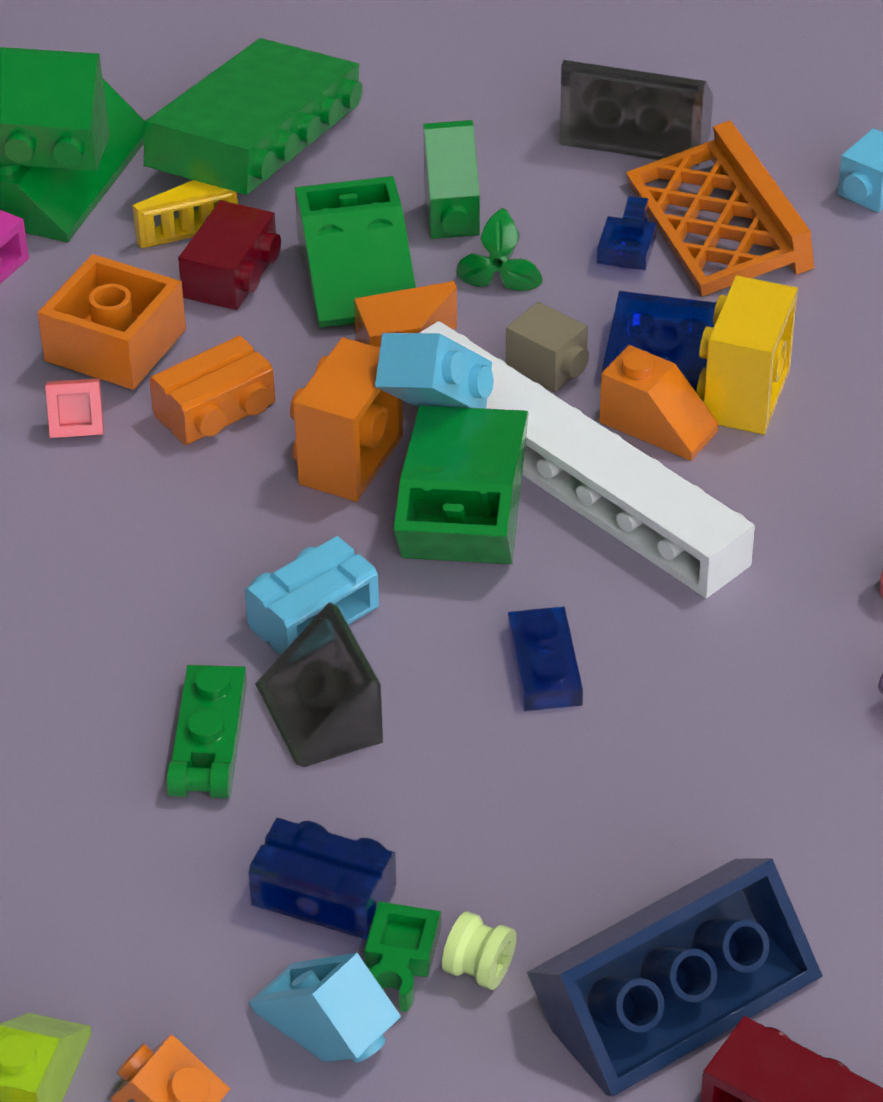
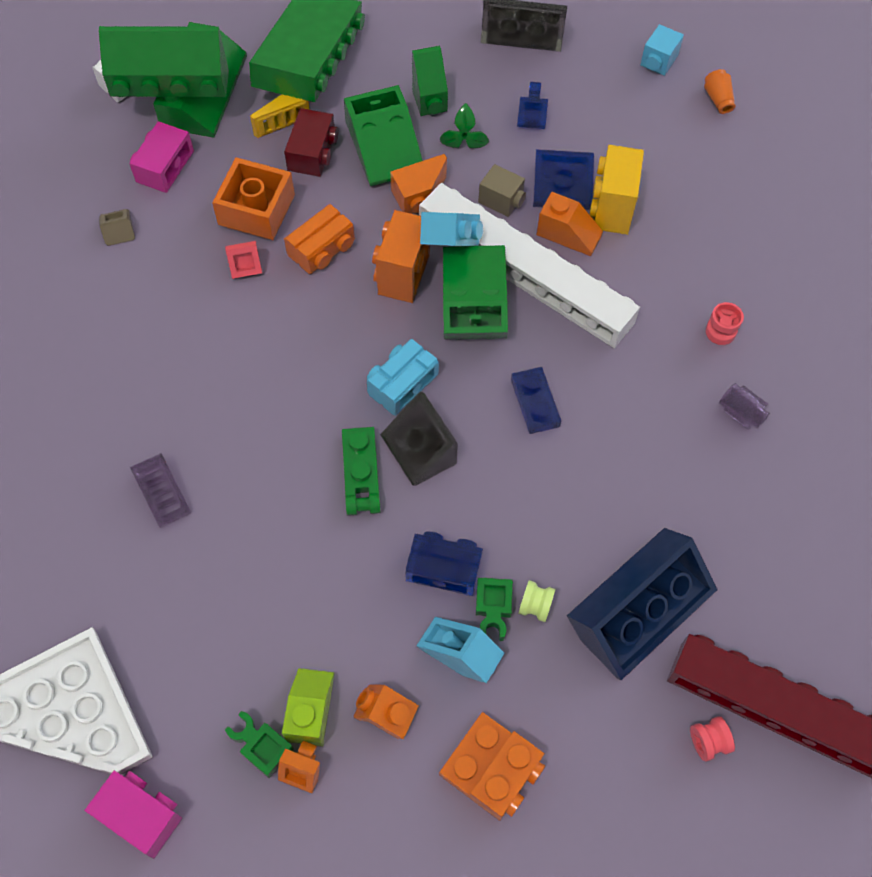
camera: 10 degrees left, 20 degrees up
(754, 197) = (602, 77): orange fence -> none

